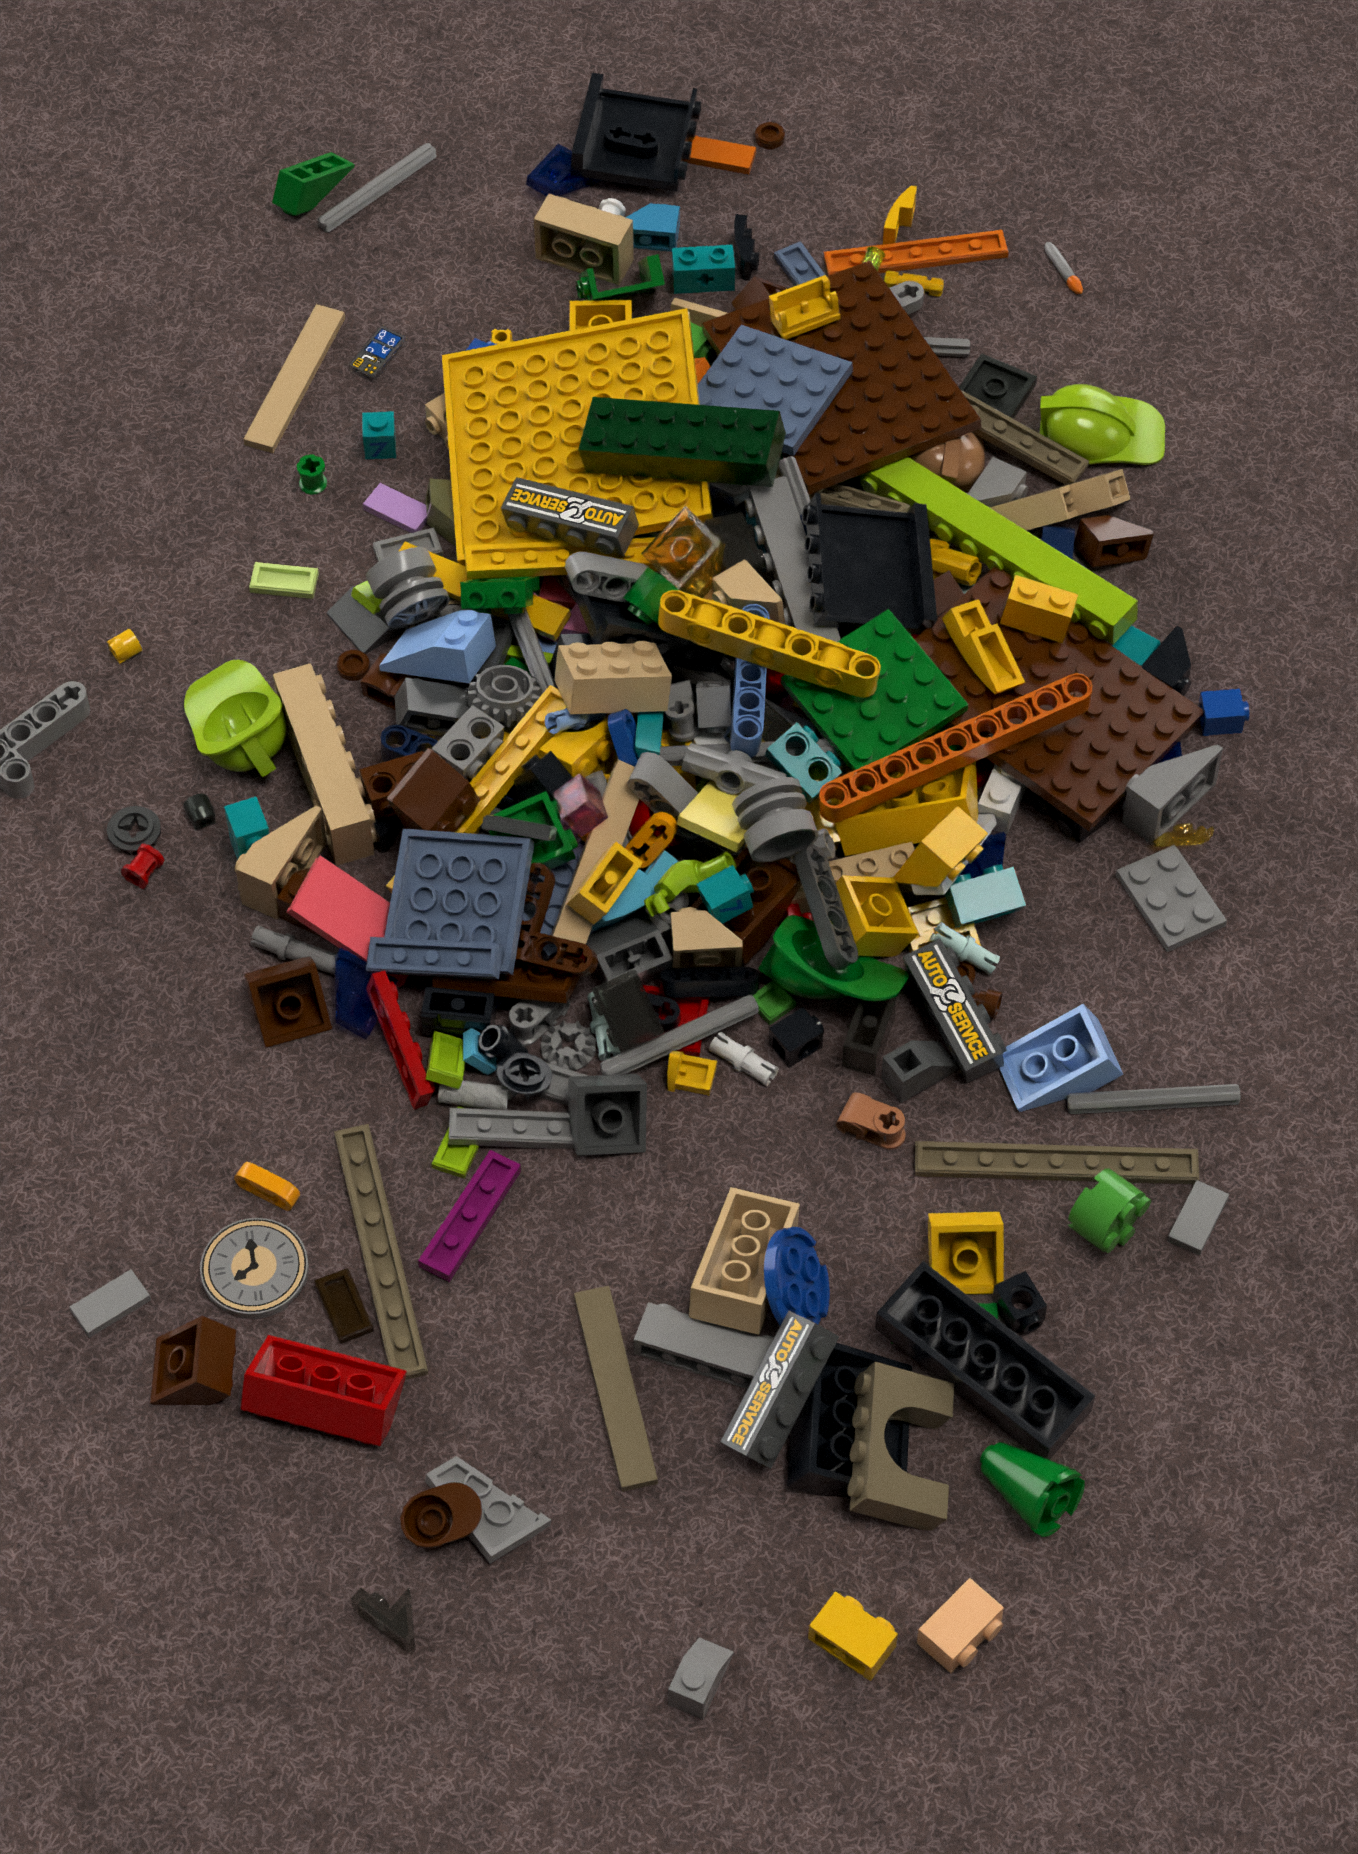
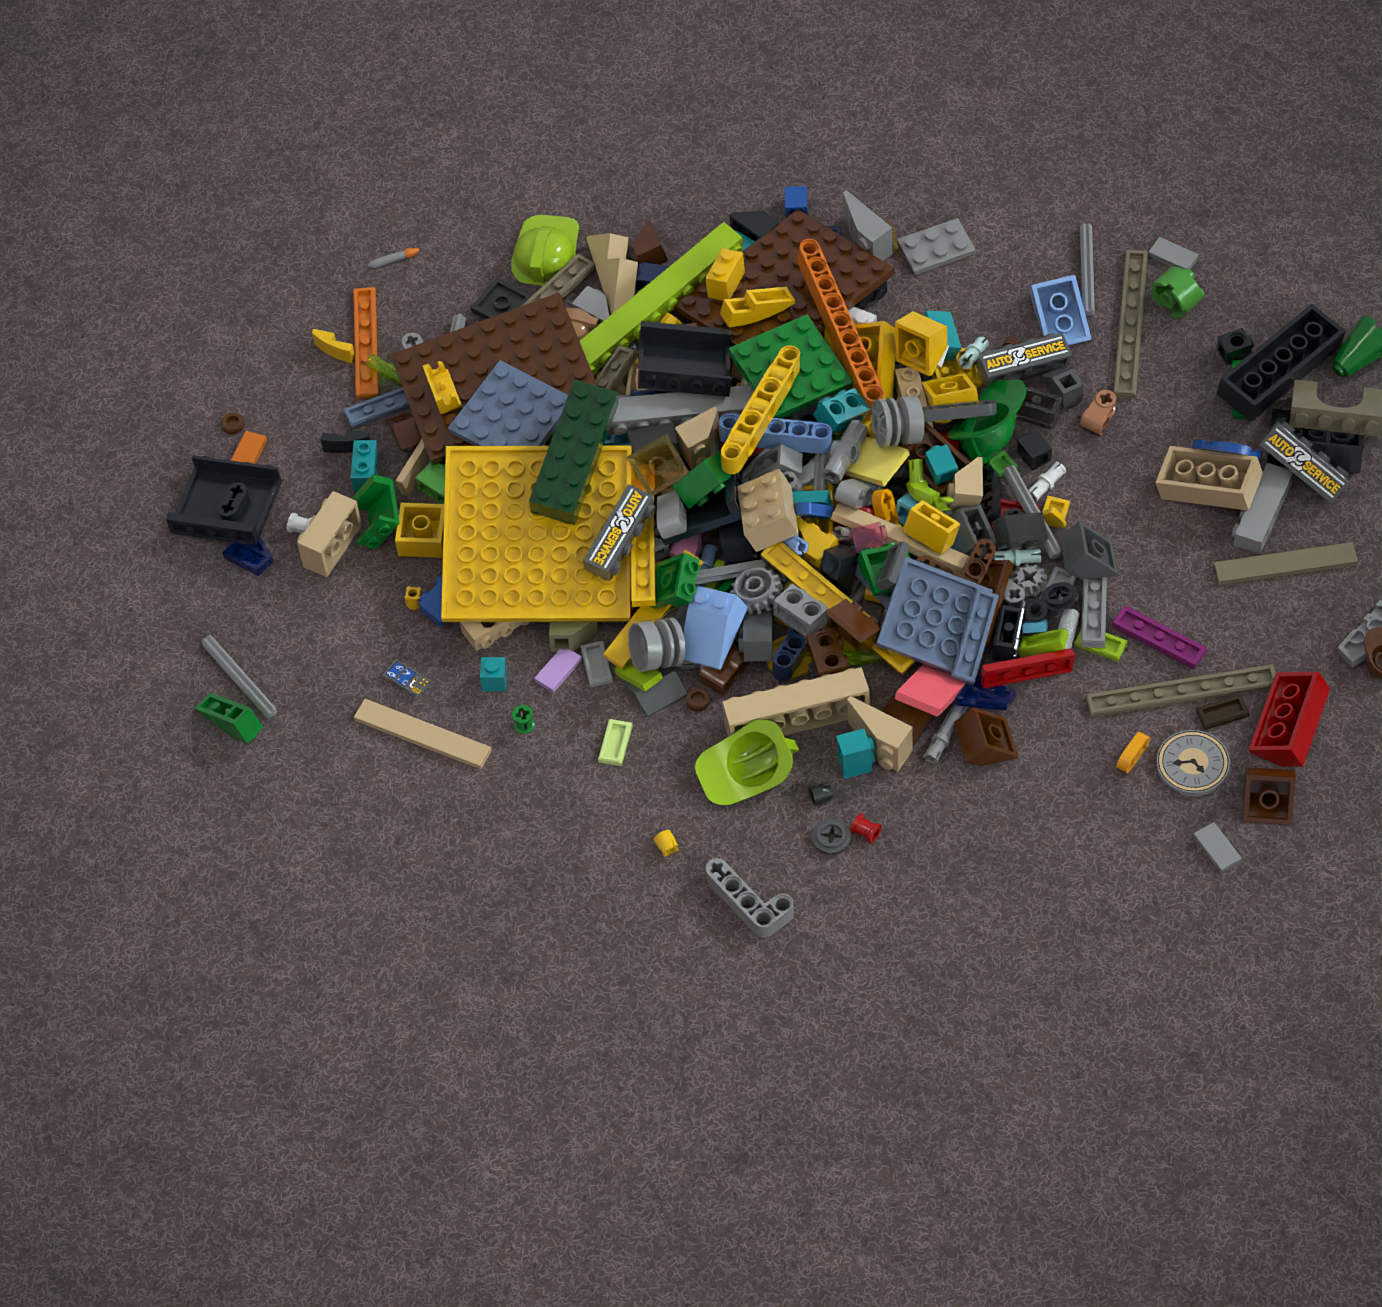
camera: 80 degrees left, 0 degrees up
(656, 227) = (315, 490): dark azure slope -> none
(933, 286) = (394, 343): yellow axle -> none
(967, 1249) = (1195, 369): yellow slope -> none

